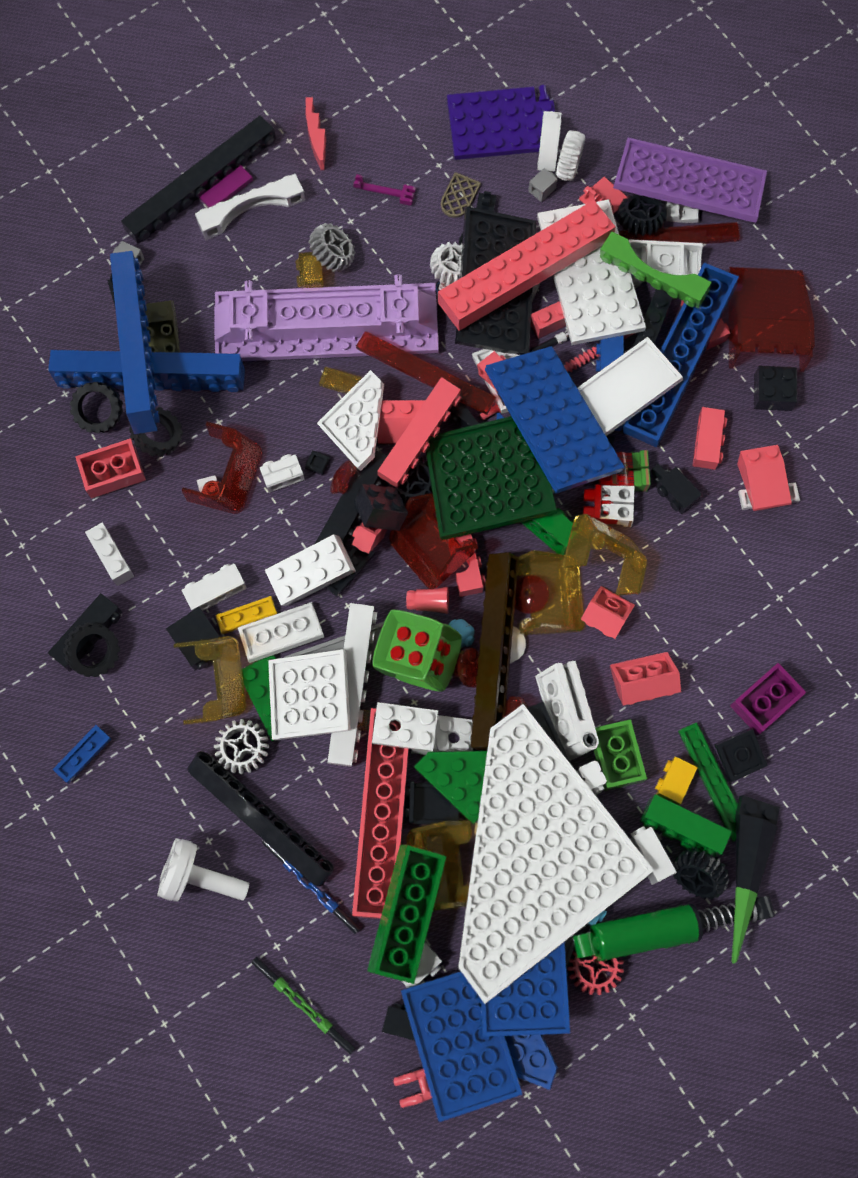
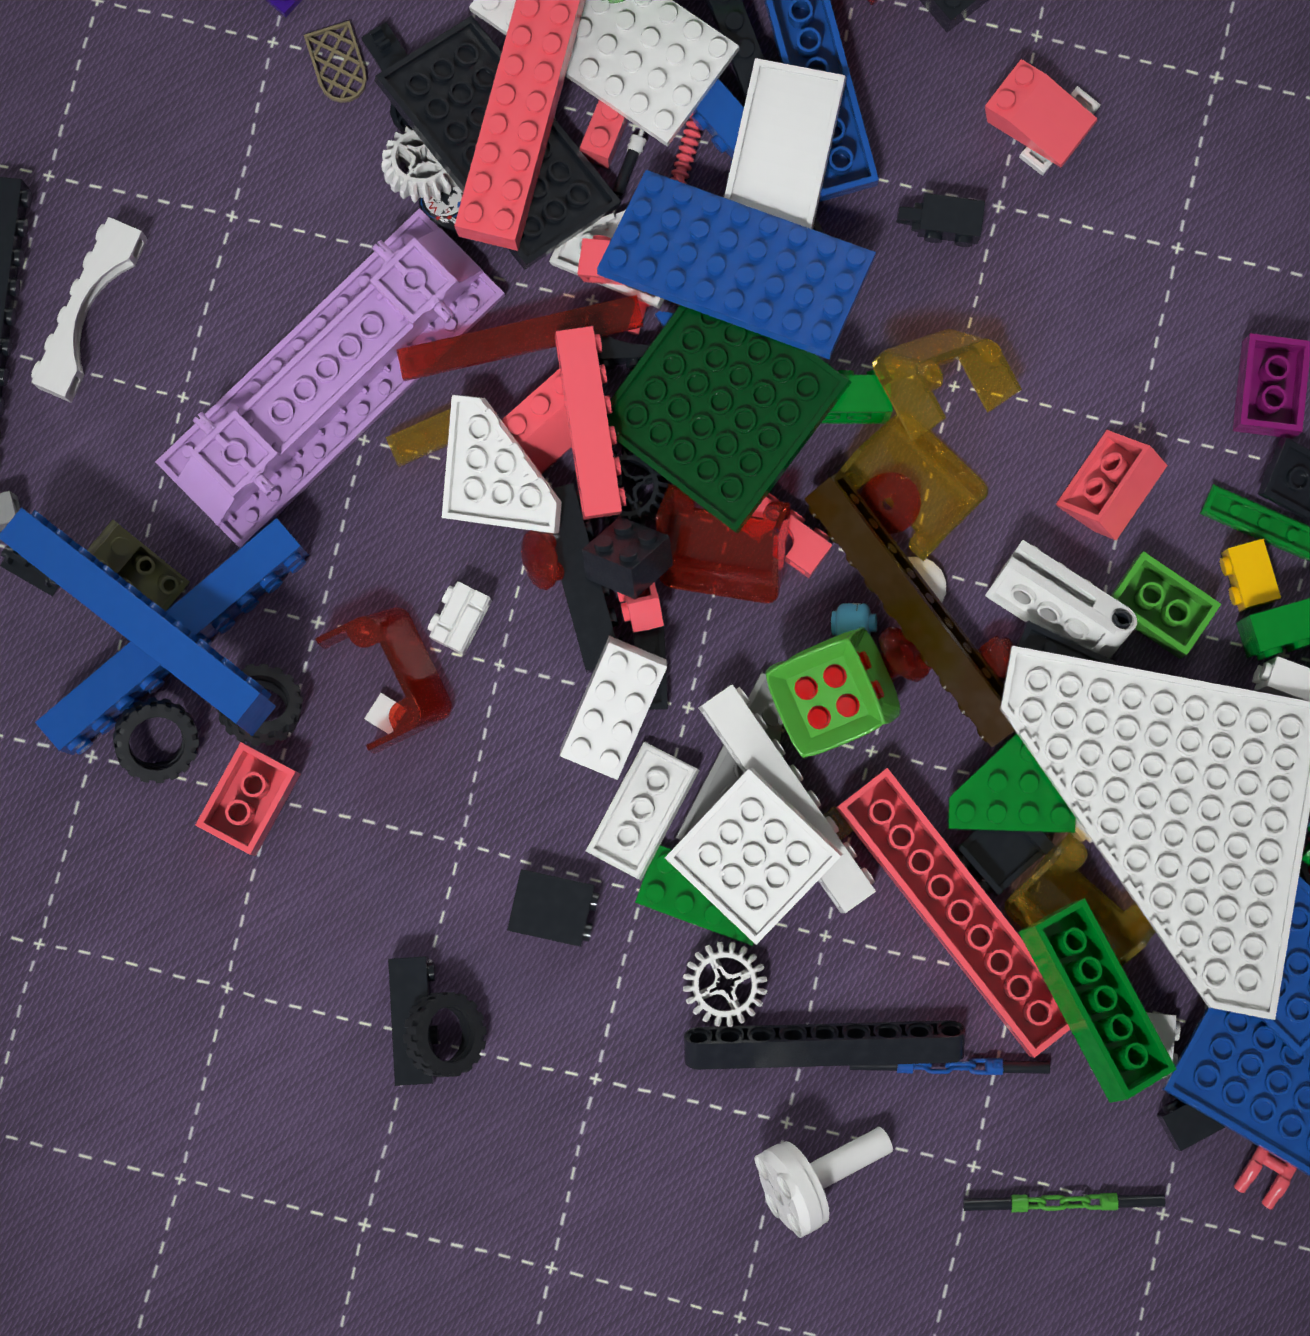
camera: 40 degrees left, 10 degrees up
(82, 754) = (547, 1161): blue plate -> none
(109, 554) = (349, 903): white brick -> none
(214, 588) = (513, 830): white brick -> none
(227, 187) = (32, 311): magenta tile -> none
(228, 678) = (607, 897): clear yellow windscreen -> none
(245, 614) = (580, 826): yellow tile -> none
(310, 271) = (248, 328): clear yellow brick -> none
(316, 135) = (83, 141): coral slope -> none
(317, 462) = (488, 566): black tile -> none
(332, 247) = (250, 275): light grey gear -> none
(406, 194) = (265, 122): magenta hinge -> none
(420, 729) = (918, 778): white bracket -> none
(428, 600) = (781, 616): coral plant -> none
(593, 777) = (1158, 657): white brick -> none
(607, 612) = (1000, 443): coral slope -> none
(611, 504) = (883, 319): white hips -> none
(634, 472) = (888, 249): hips -> none
(709, 438) = (929, 119): coral brick -> none

